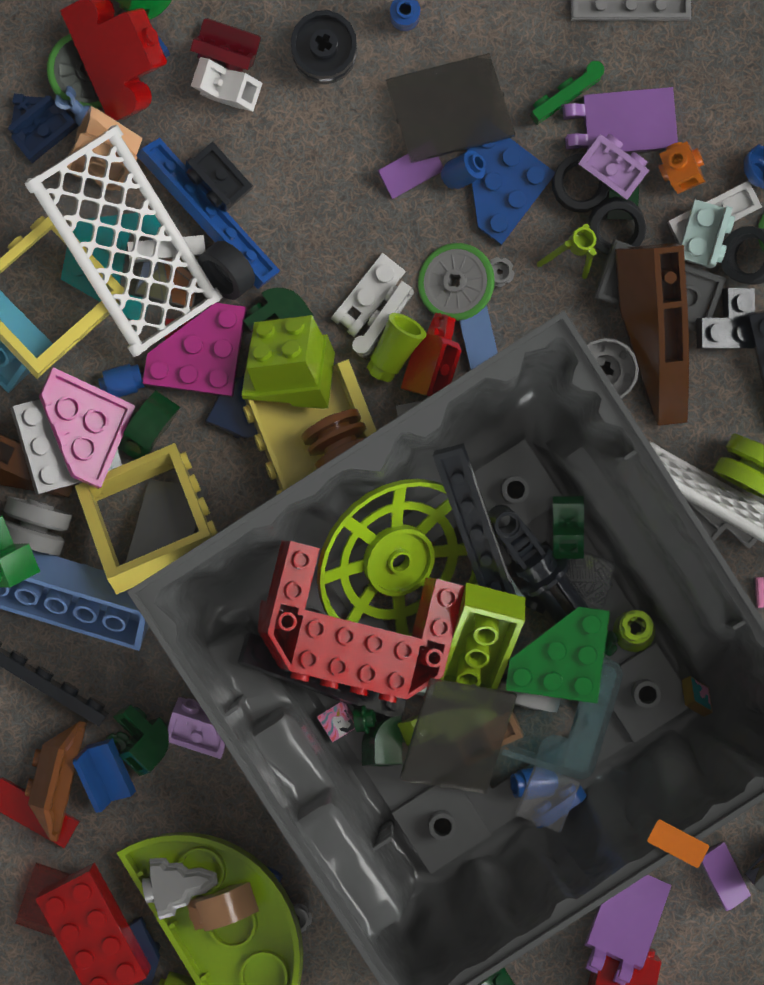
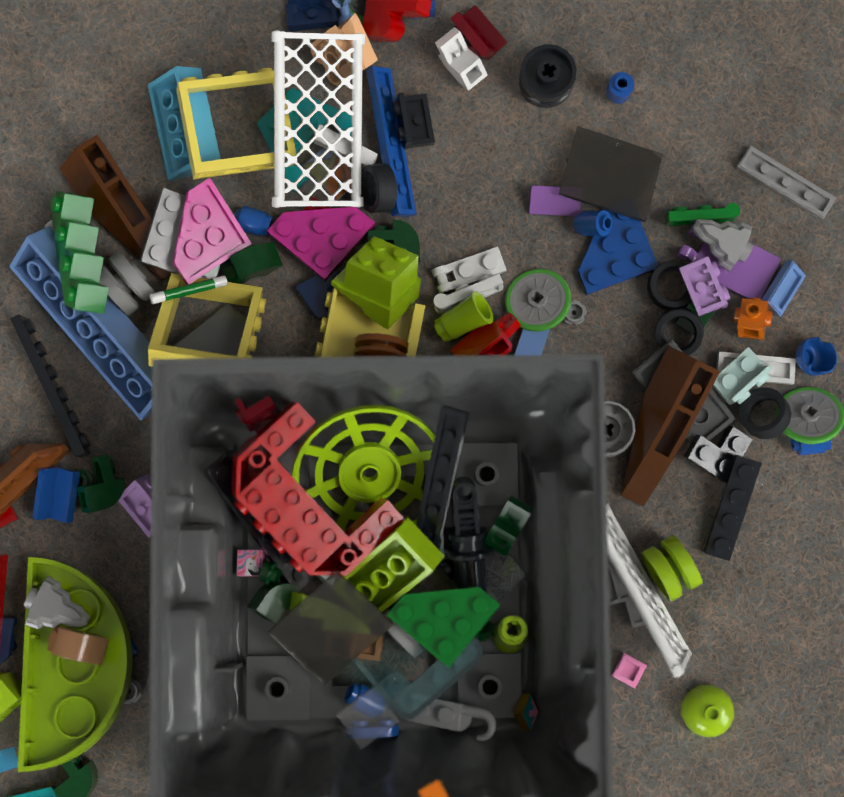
camera: 25 degrees right, 5 degrees down
(104, 492) = (188, 289): none -> green bar
(258, 575) = (257, 415): none -> dark red bracket
(580, 244) = (644, 325): lime plant -> none
(608, 105) = (726, 240): none -> light grey rock
(633, 743) = (455, 717): none -> light grey plate
(693, 115) = (783, 287): none -> medium blue tile

